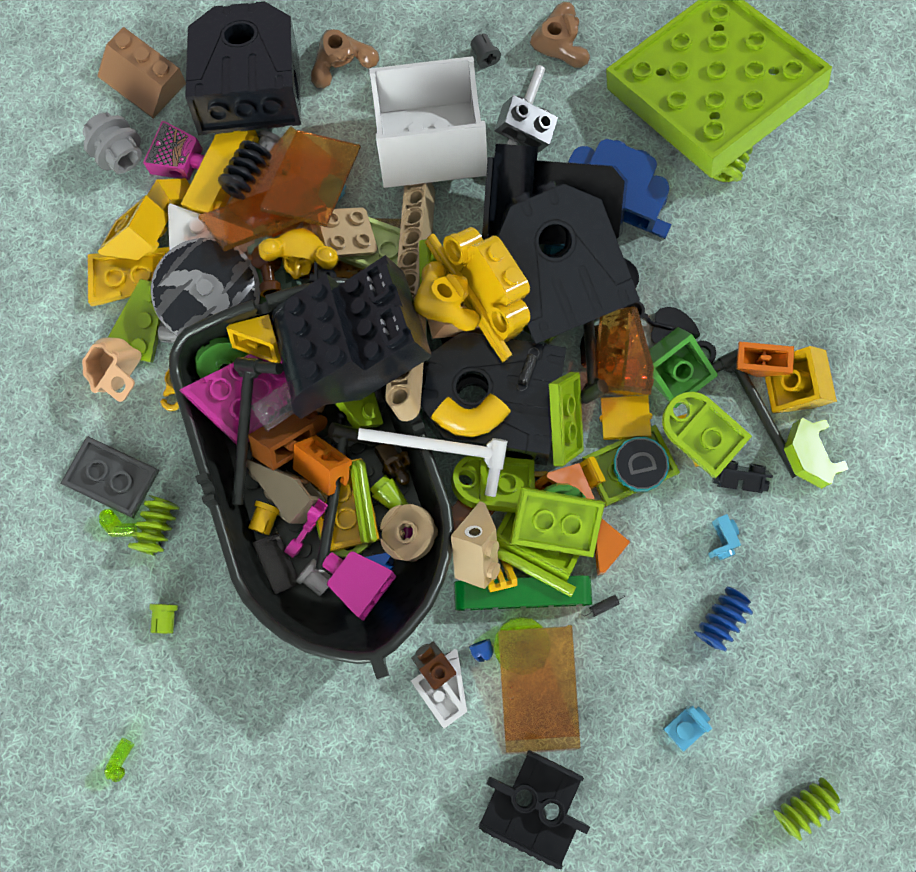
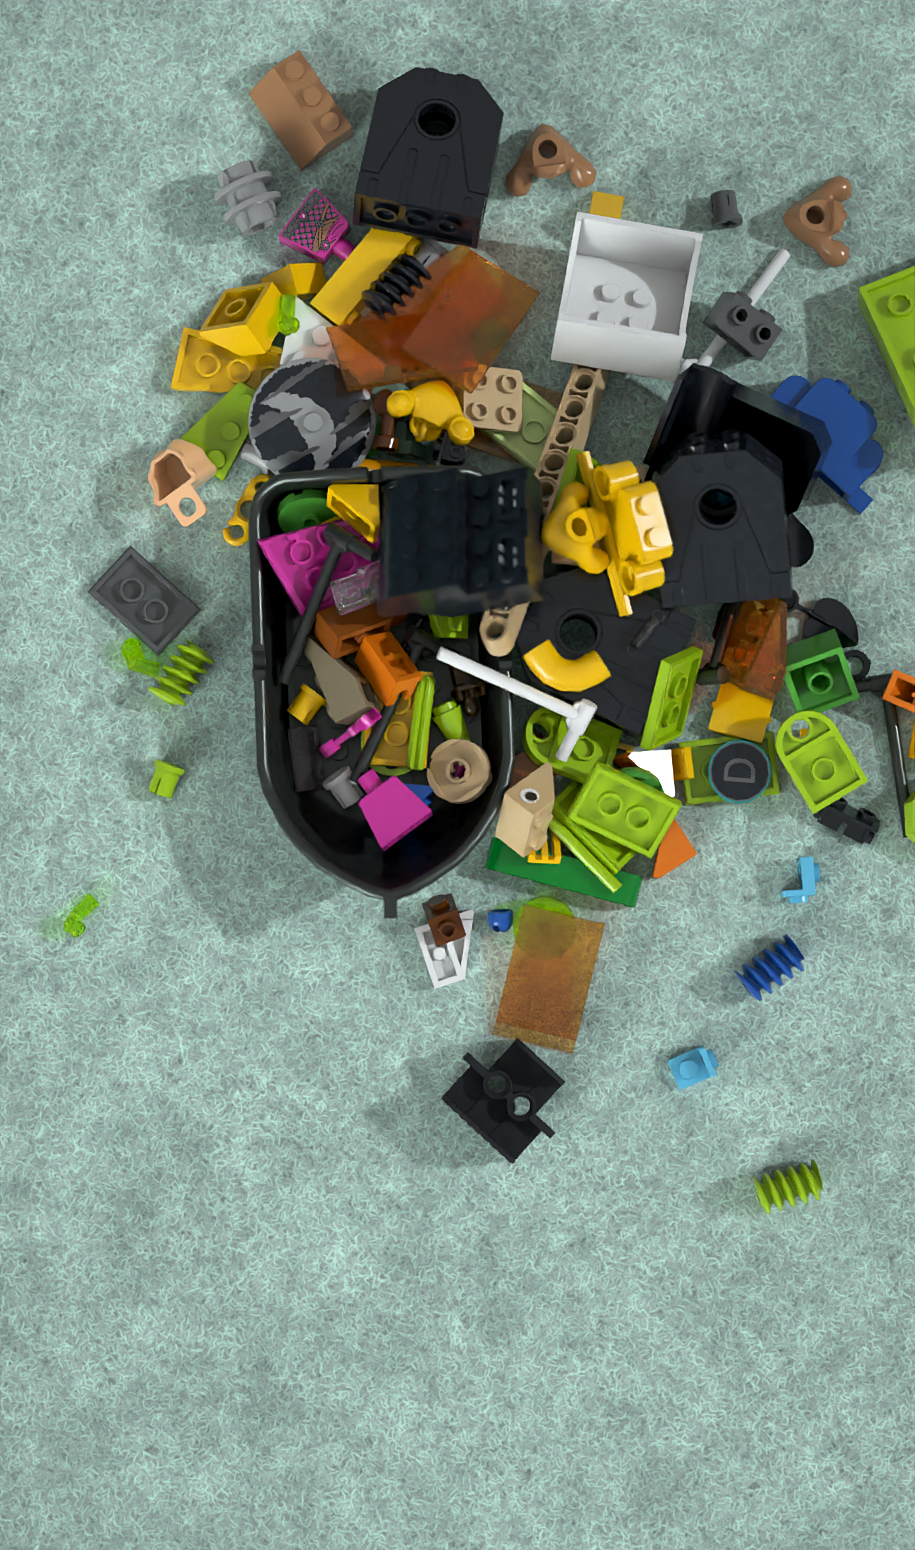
camera: 10 degrees right, 10 degrees up
(164, 219) = (287, 322): none -> clear neon green arm
(604, 605) = (648, 912): dark grey piece -> none

